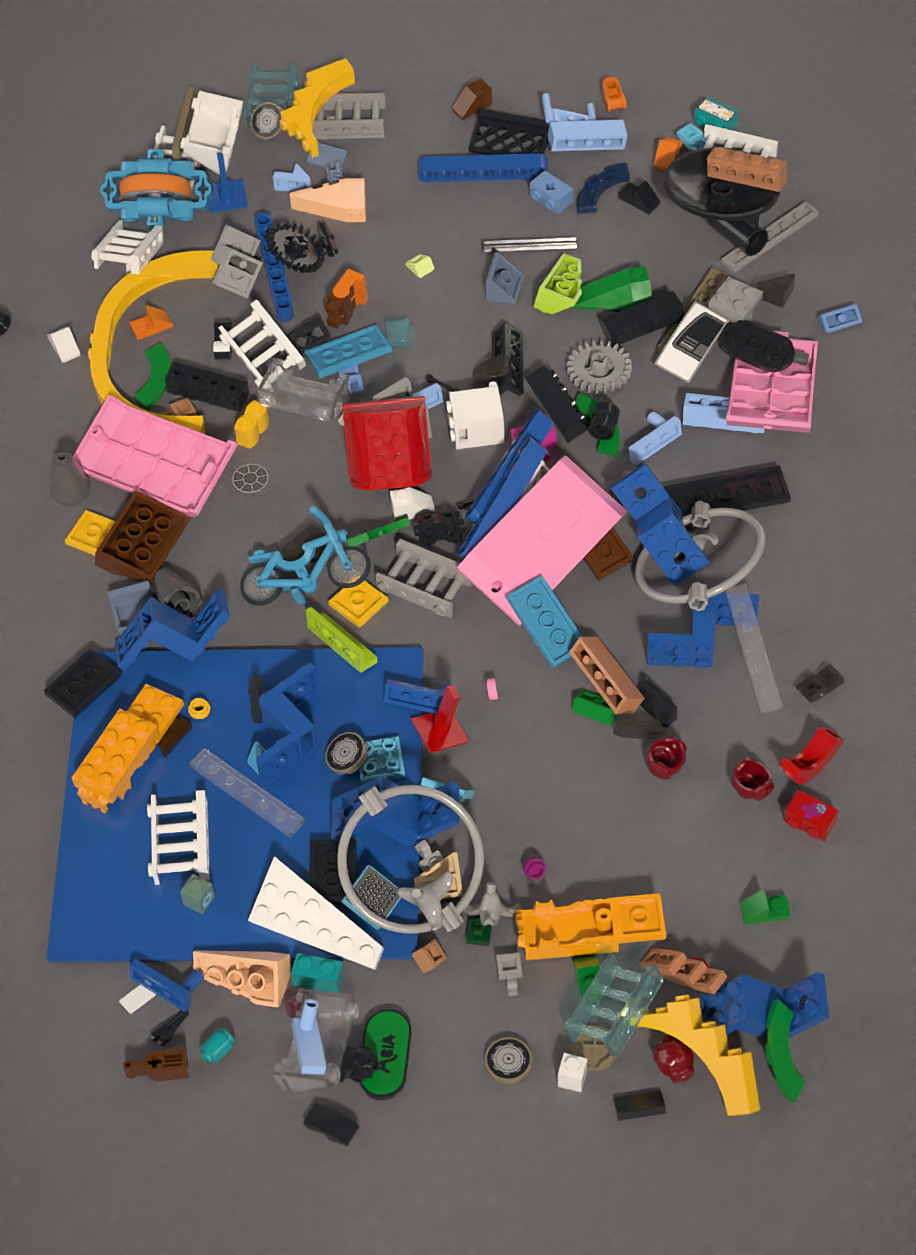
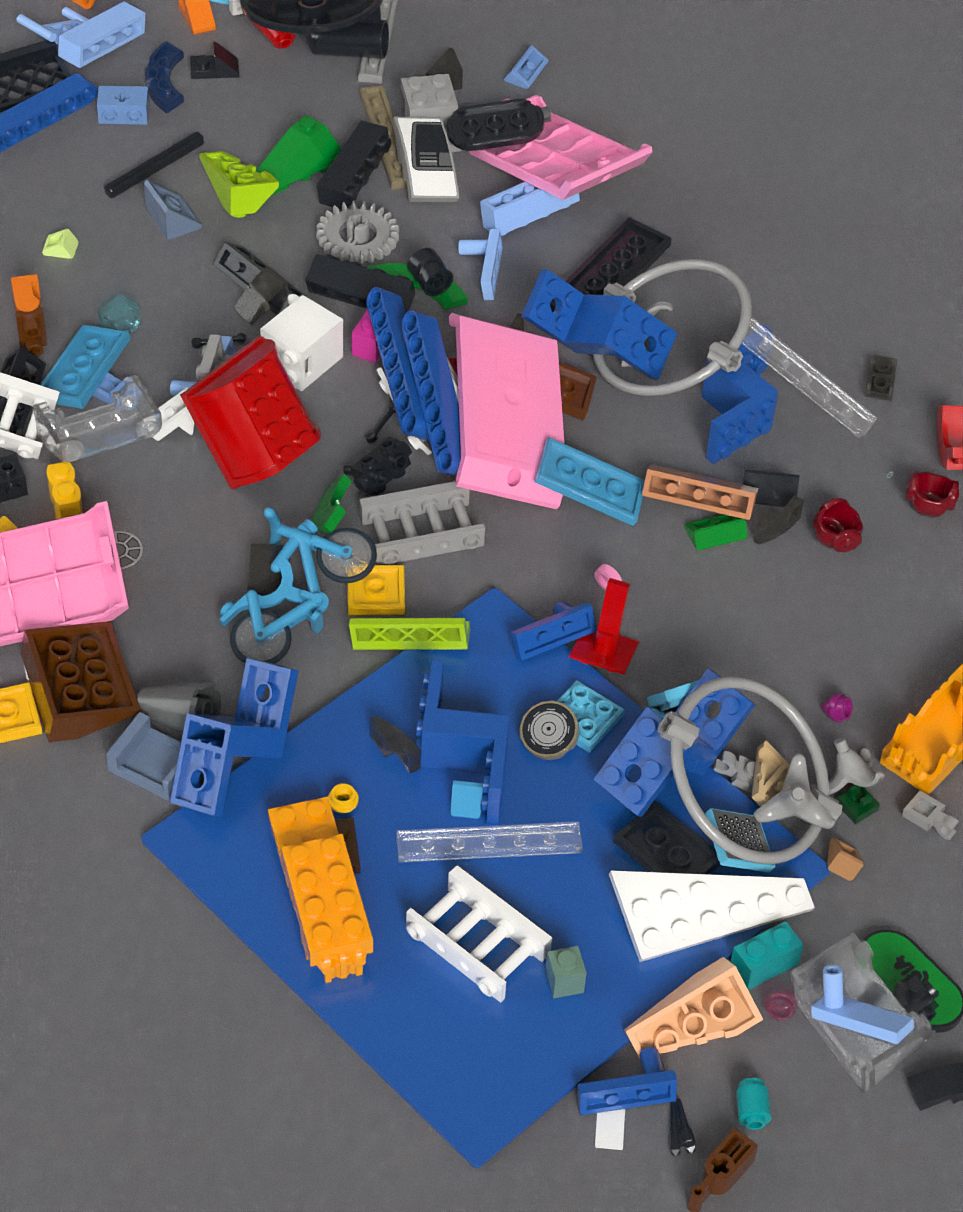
camera: 50 degrees left, 5 degrees down
(82, 683) = (186, 863): black plate -> none
(410, 503) = (321, 467): white slope -> none

